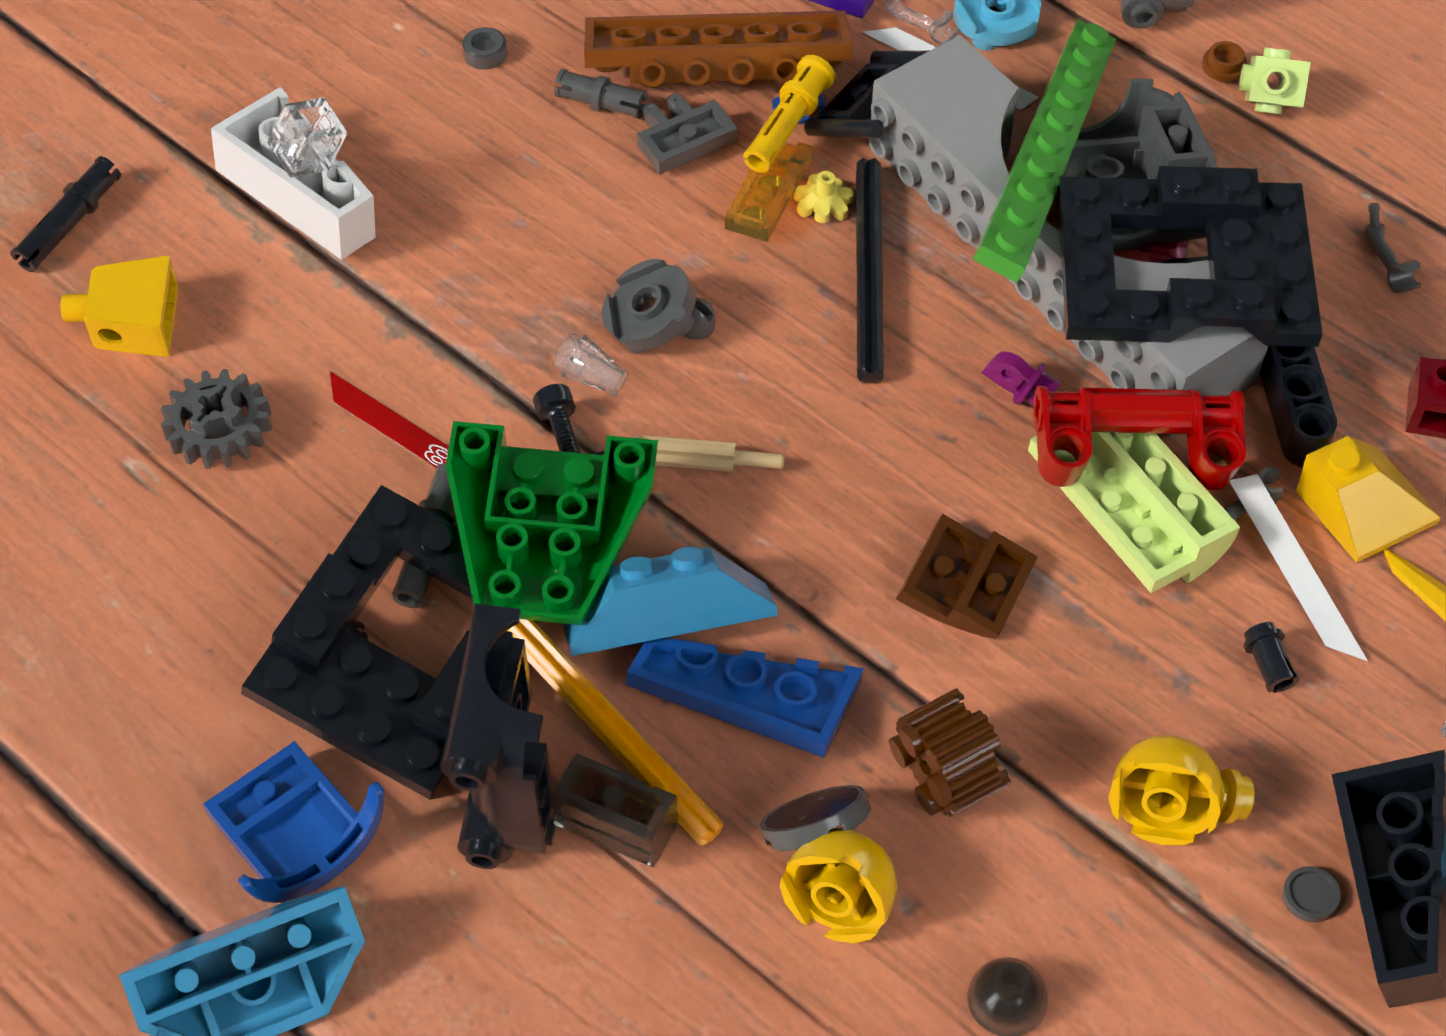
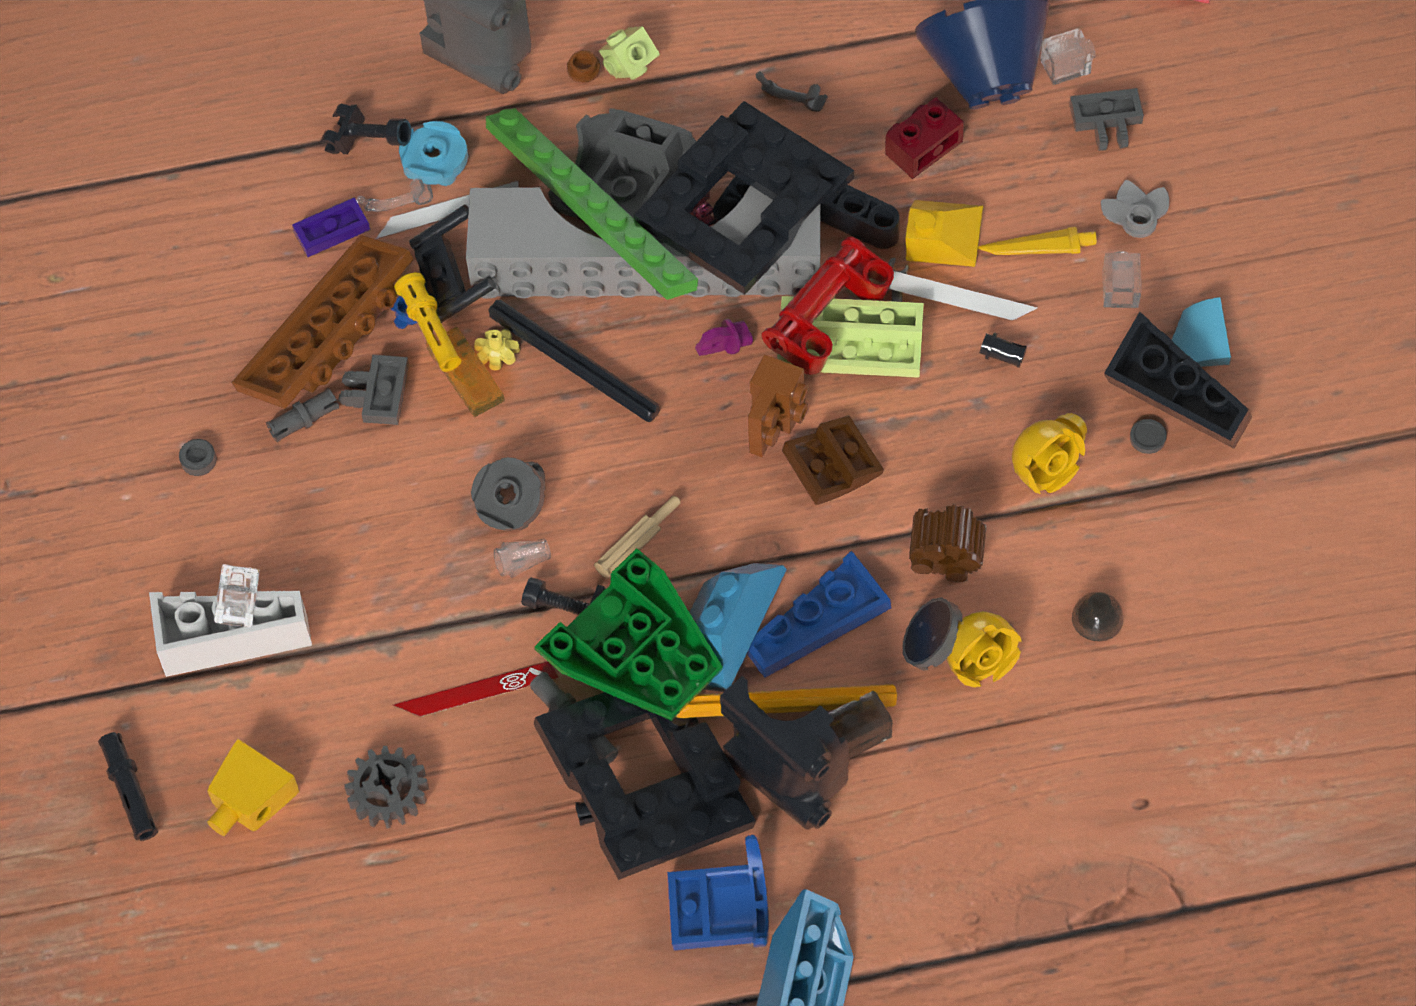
camera: 50 degrees left, 5 degrees up
(969, 465) = (776, 402): none -> dark orange brick

